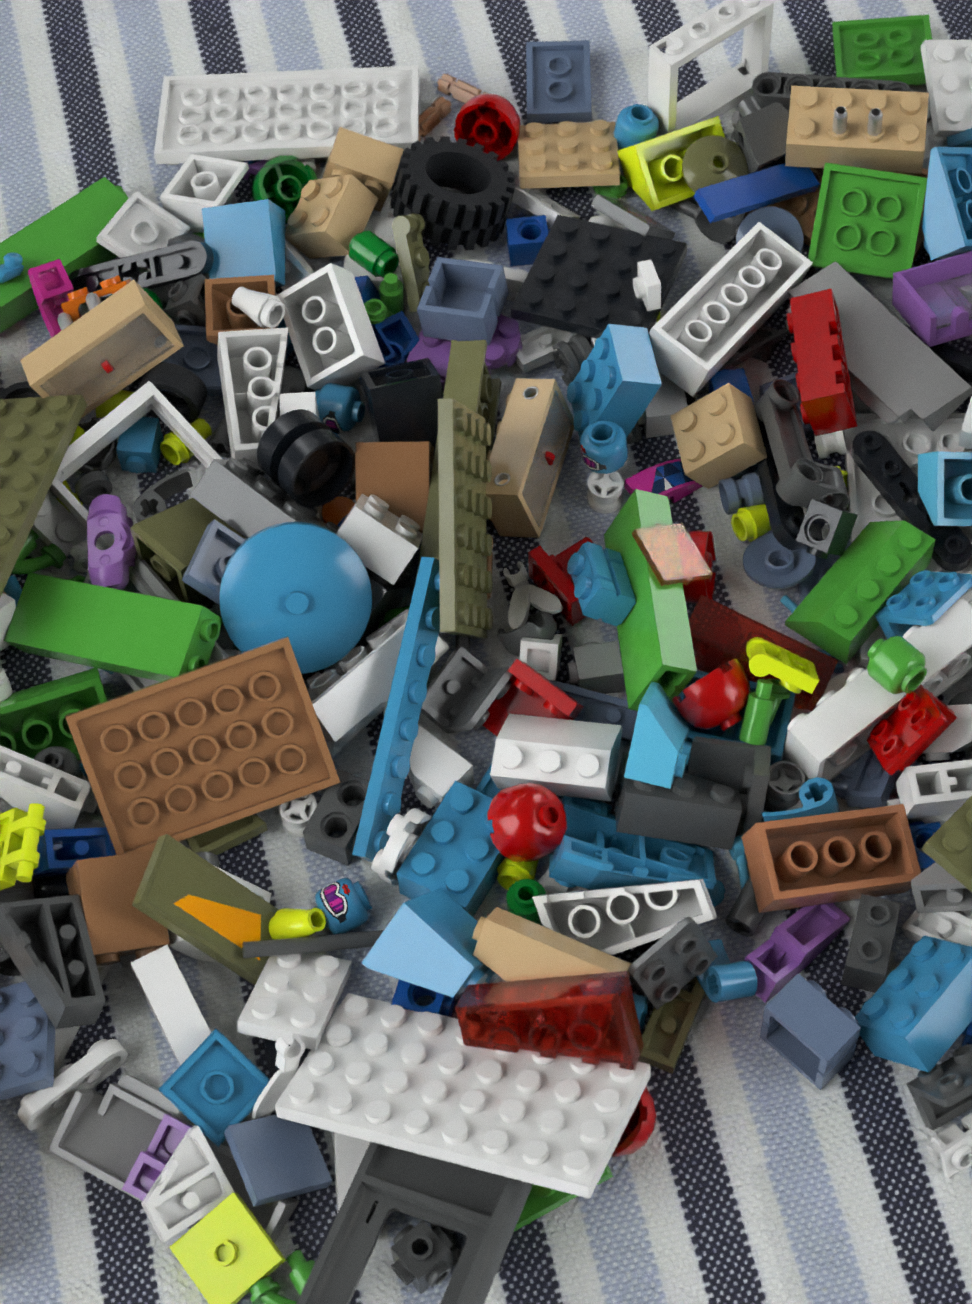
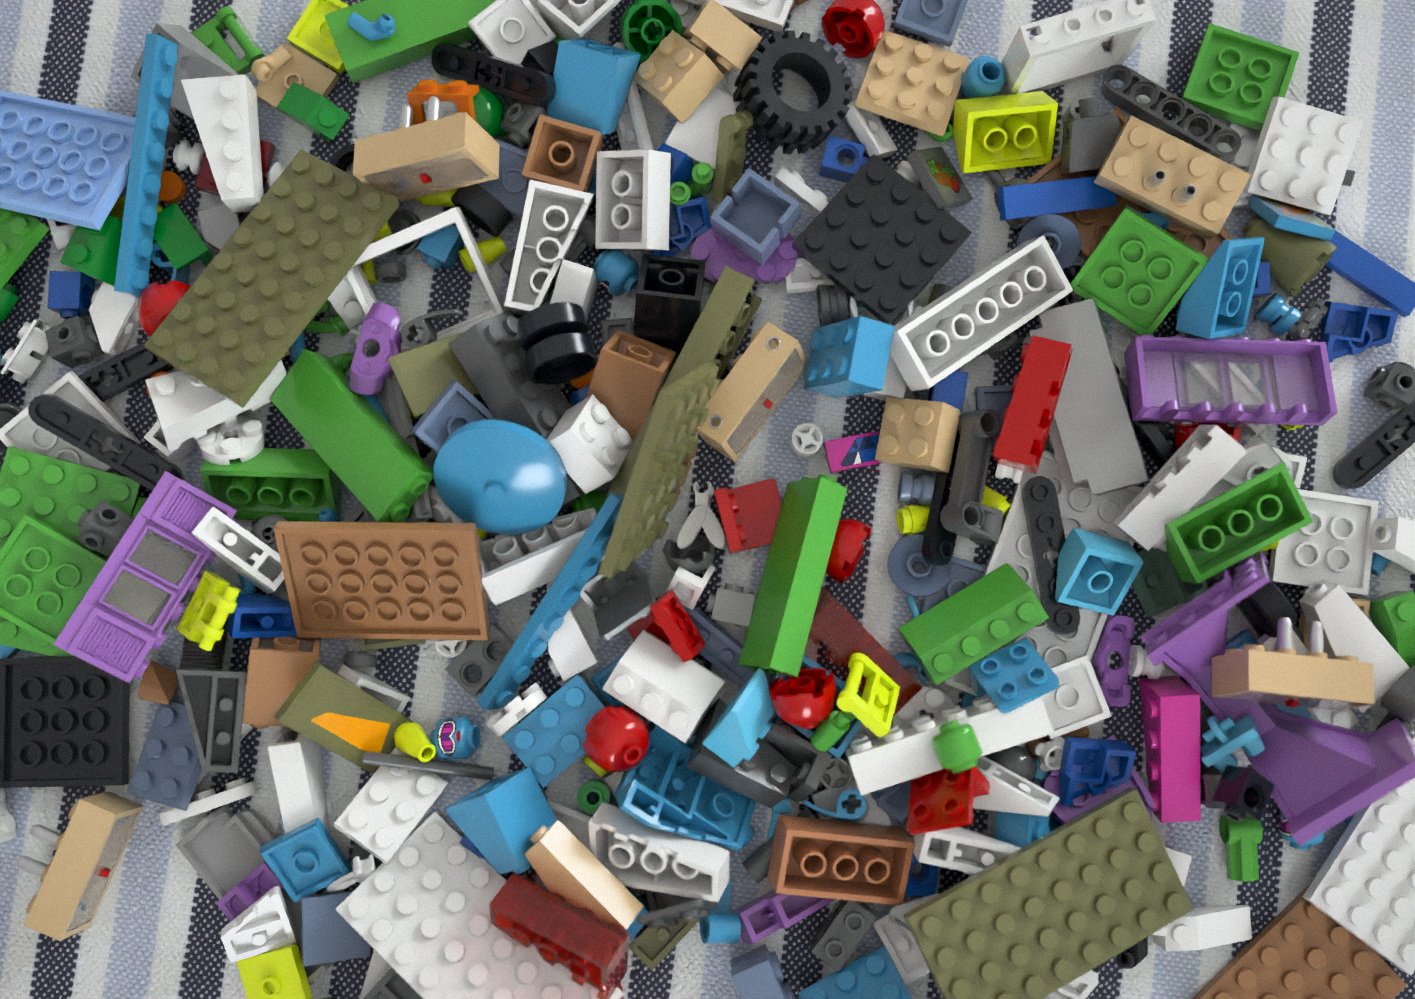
camera: 20 degrees right, 25 degrees up
(50, 289) = (414, 61): dark pink slope -> none
(261, 307) = (574, 167): white cone -> none
(373, 254) = (698, 135): green brick -> none
(601, 583) = (759, 547): dark azure brick -> none
(604, 447) = (815, 399): dark azure head -> none
(648, 285) = (914, 277): white plate -> none
(672, 554) = (824, 553): clear orange piece -> none
(699, 166) = (1018, 148): olive dish -> none
(840, 524) = (977, 563): black brick -> none

